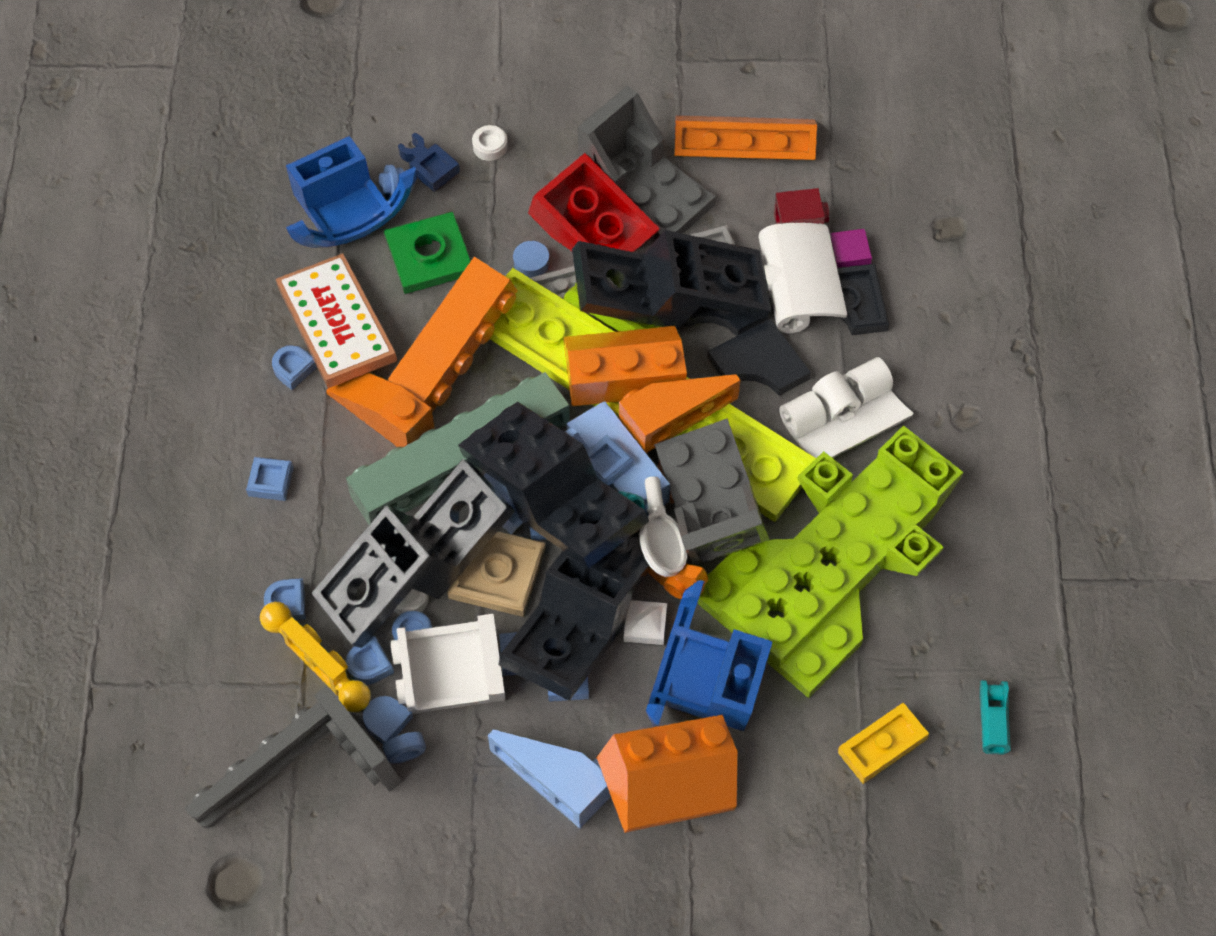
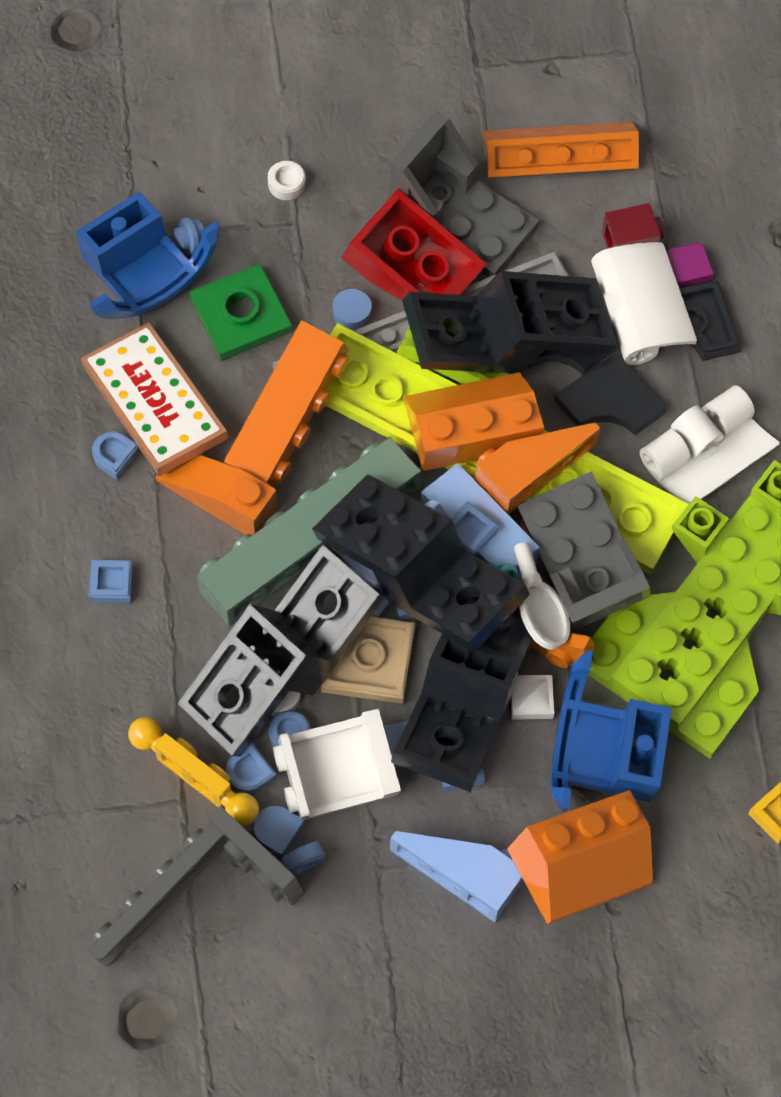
camera: 10 degrees left, 5 degrees up
(290, 593) = (152, 705): medium blue tile -> none
(432, 165) = (229, 210): dark blue plate -> none

